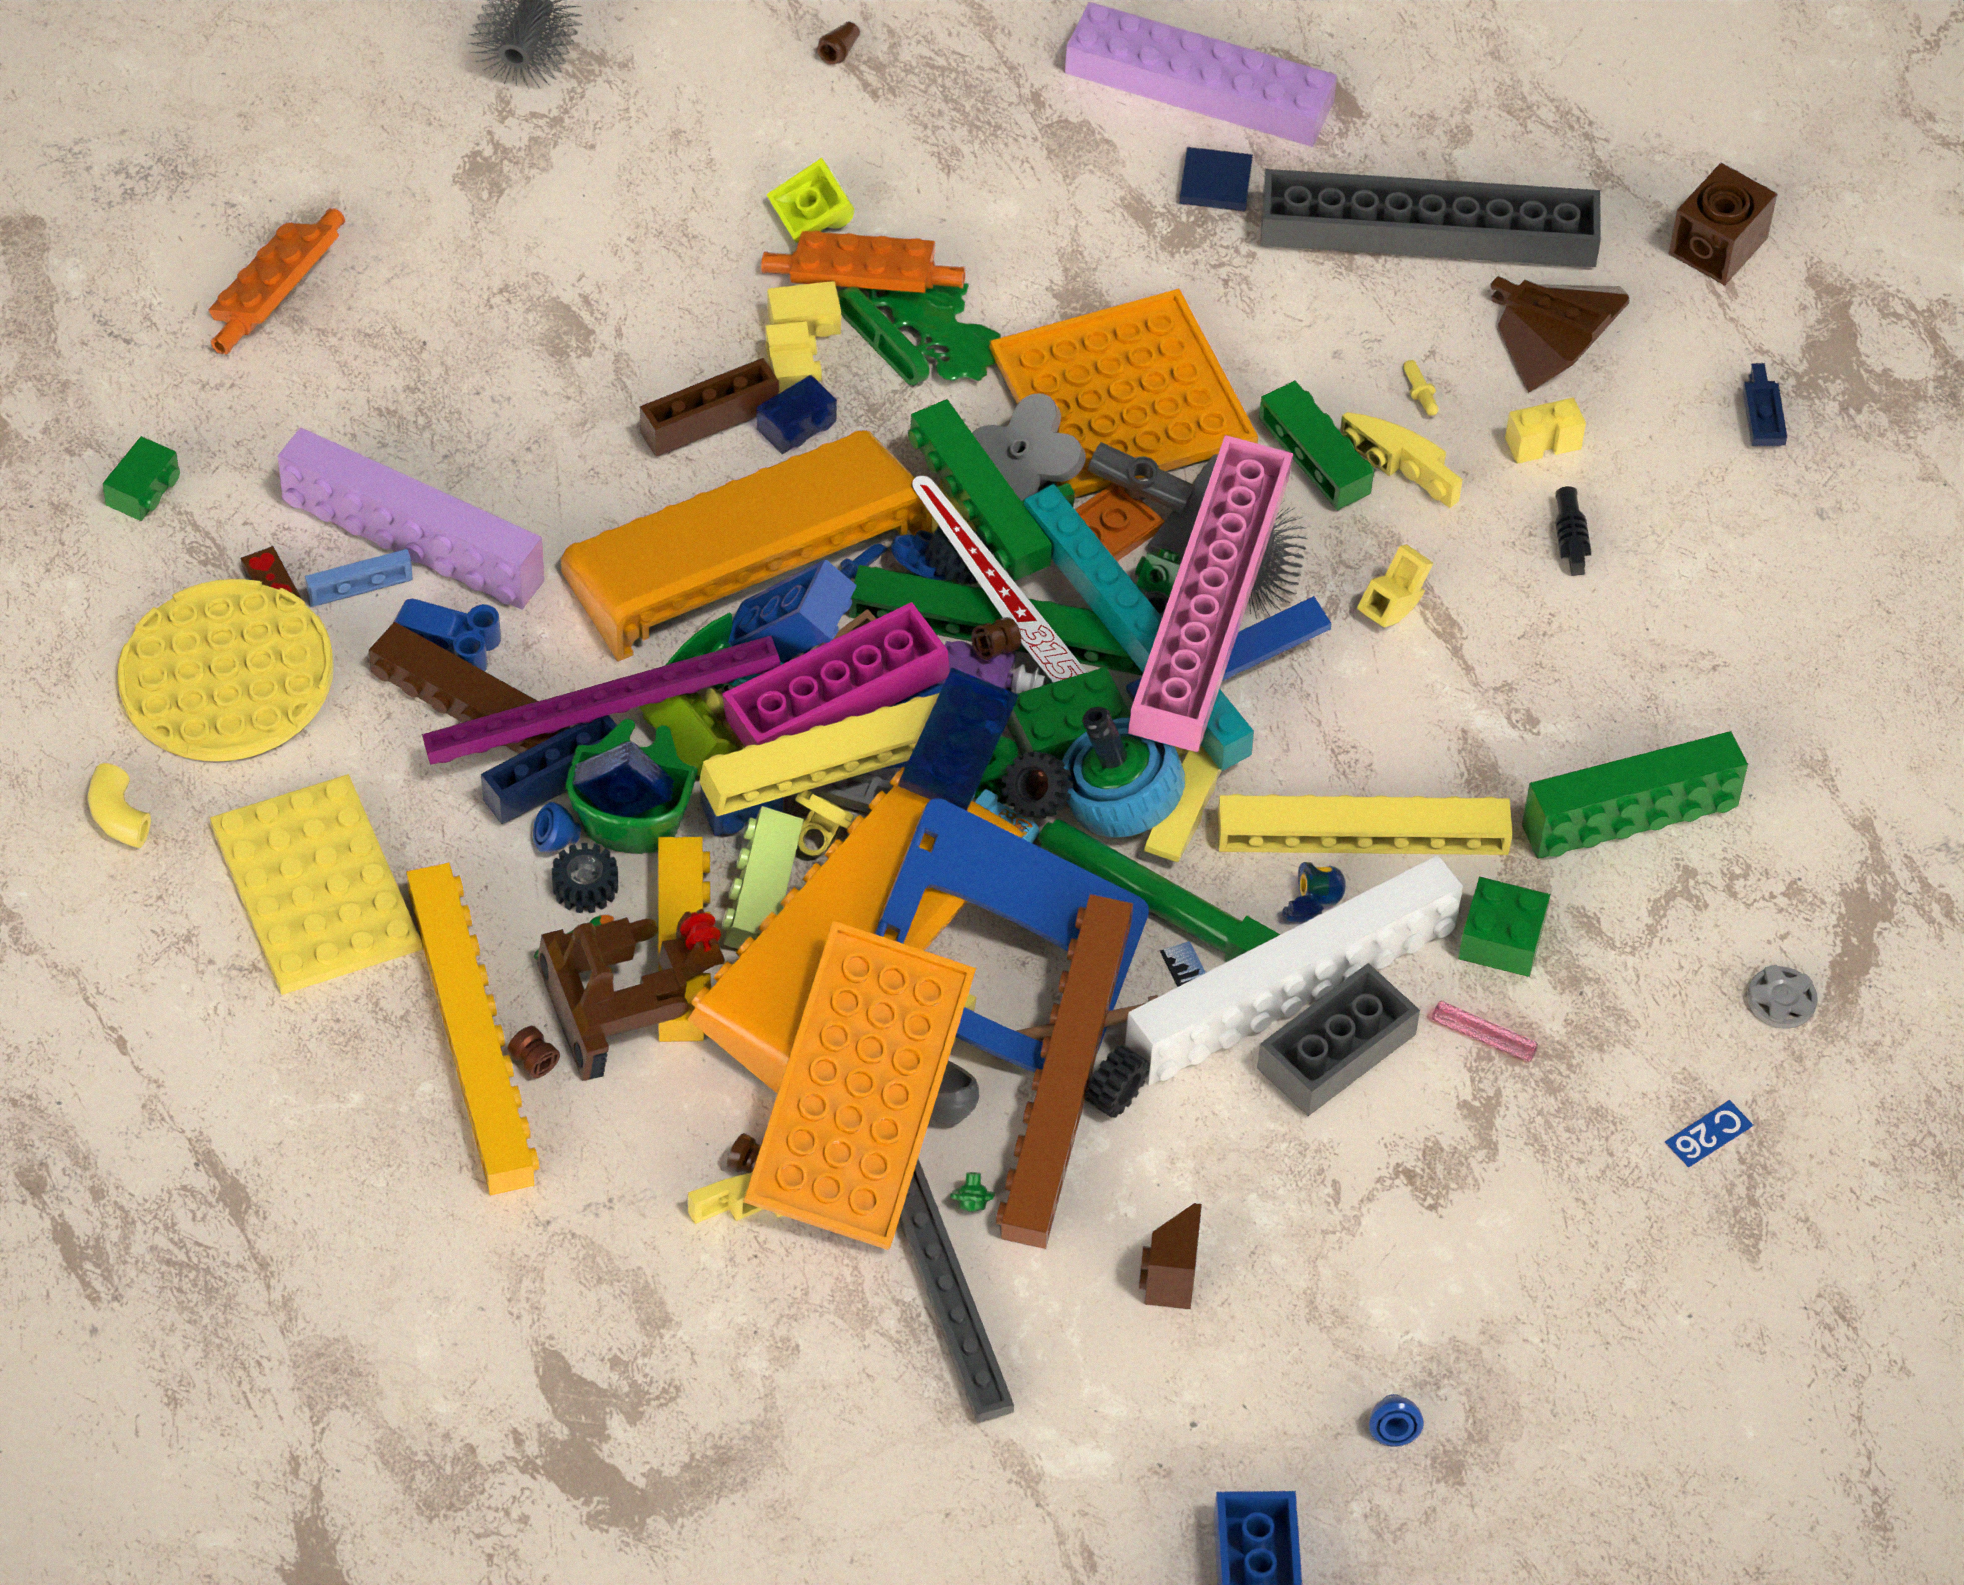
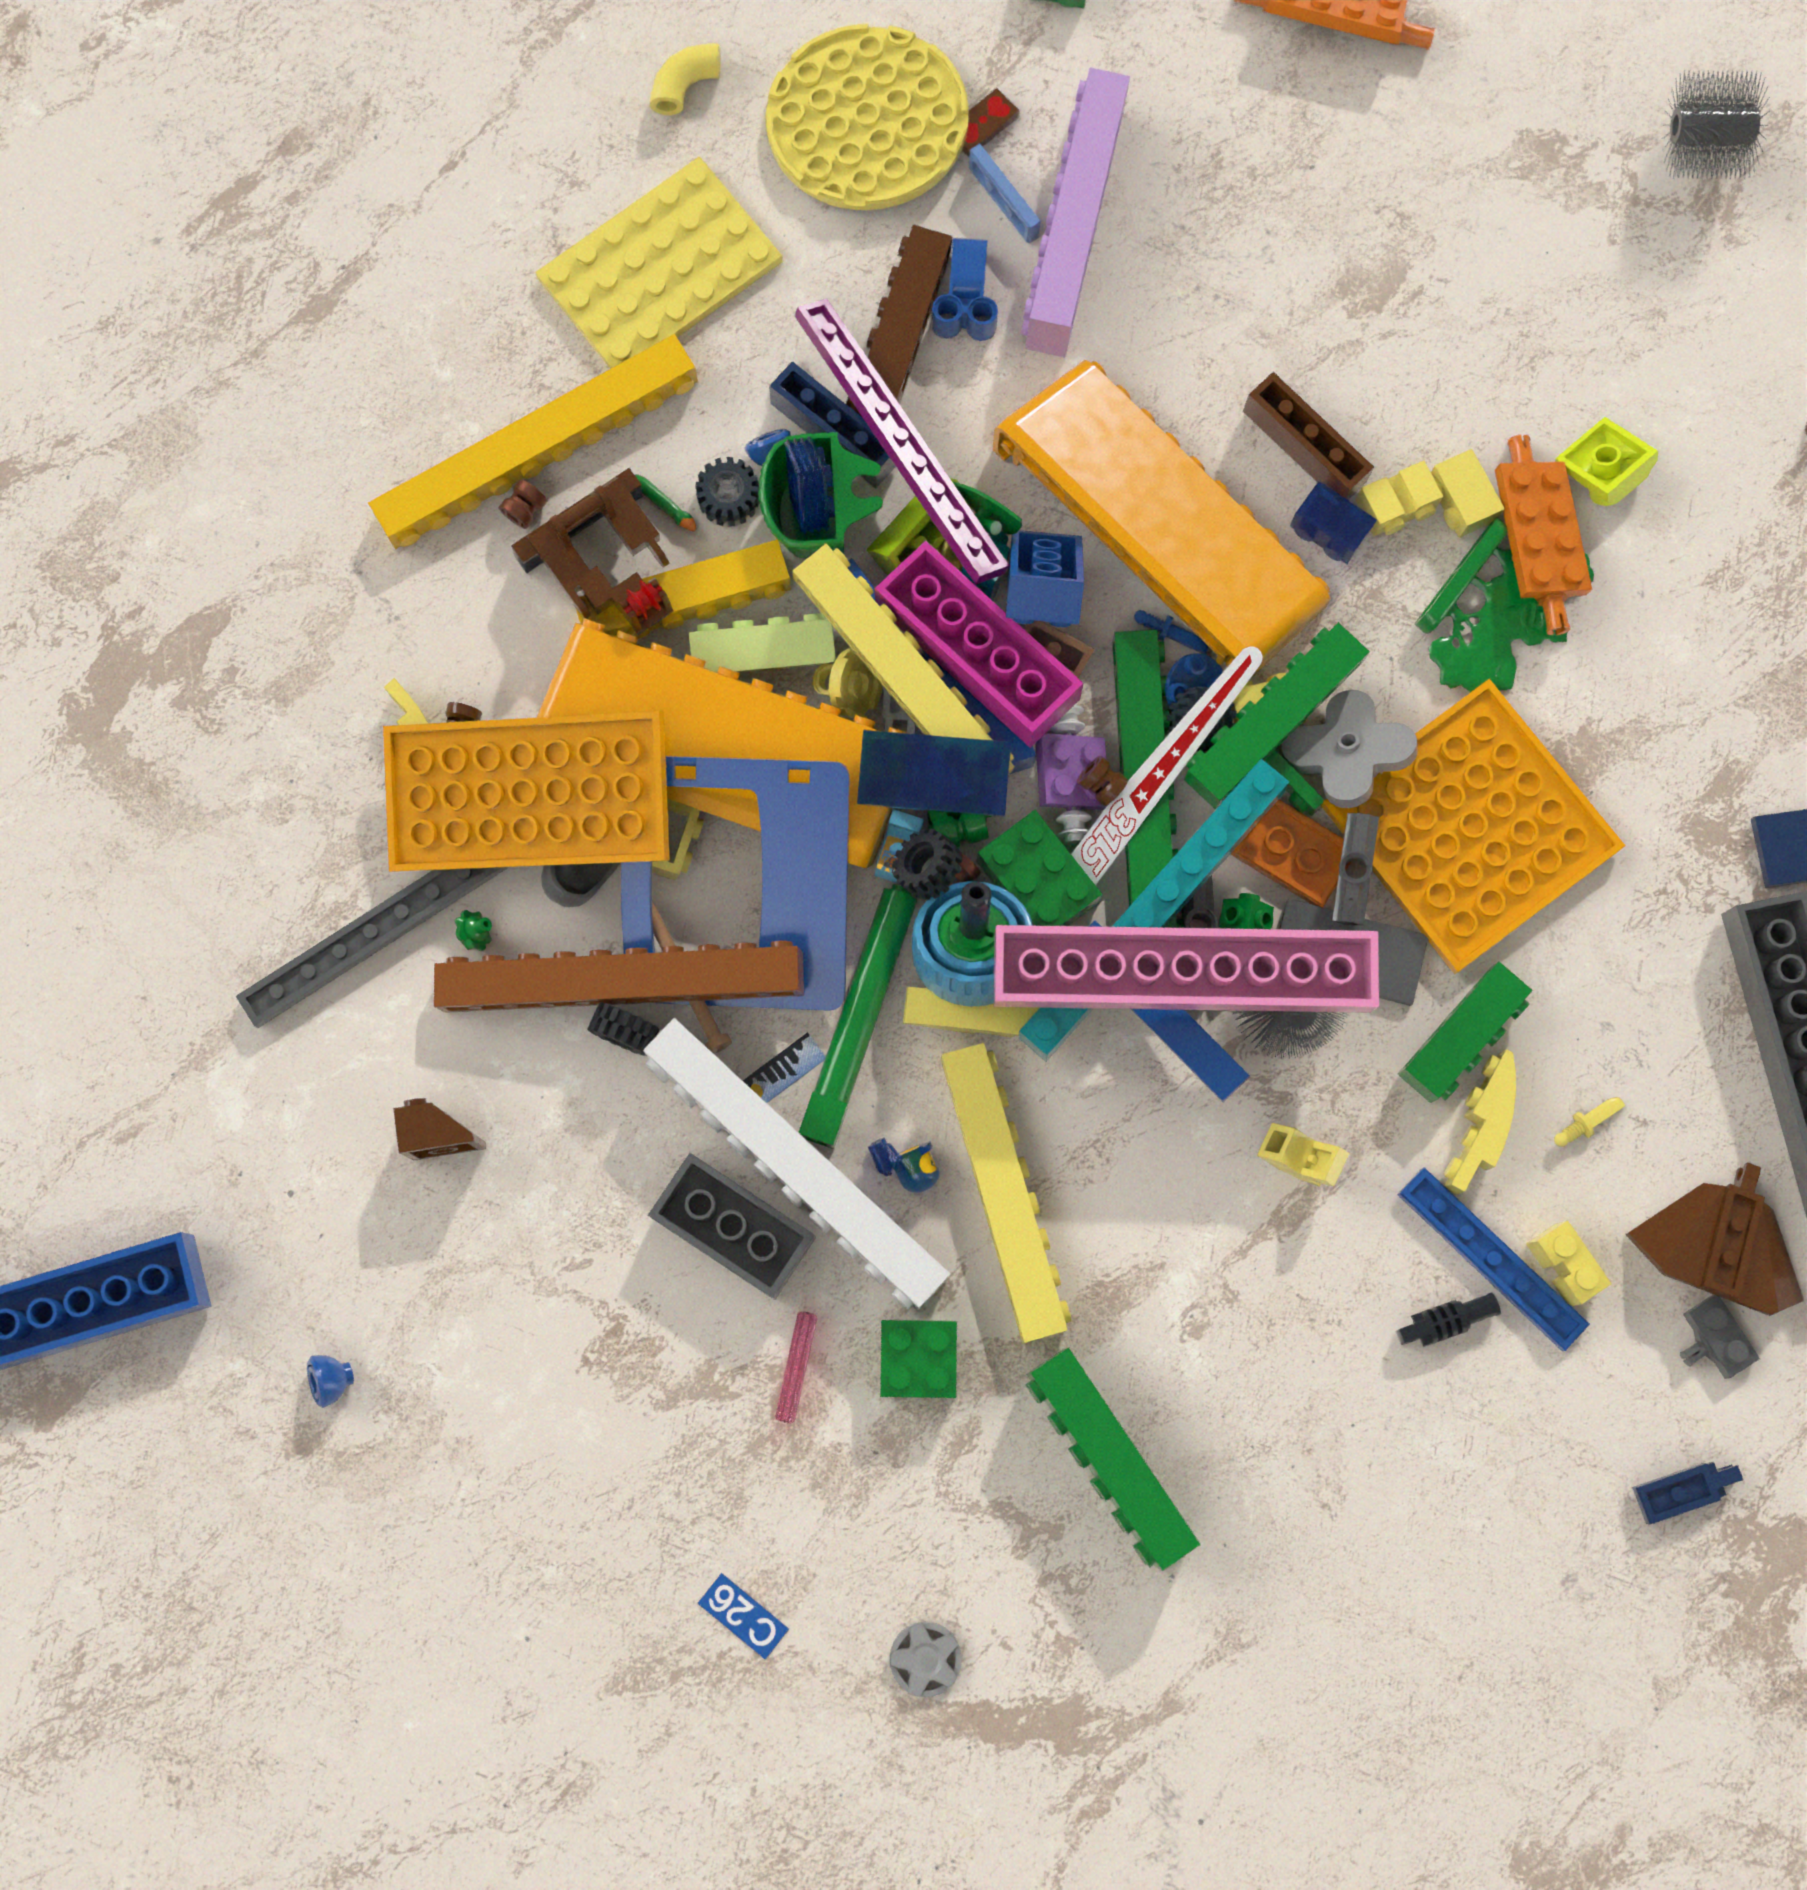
camera: 75 degrees right, 25 degrees up
(1524, 488) = (1493, 1259): none -> blue tile
(1637, 351) = (1718, 1338): none -> dark grey plate

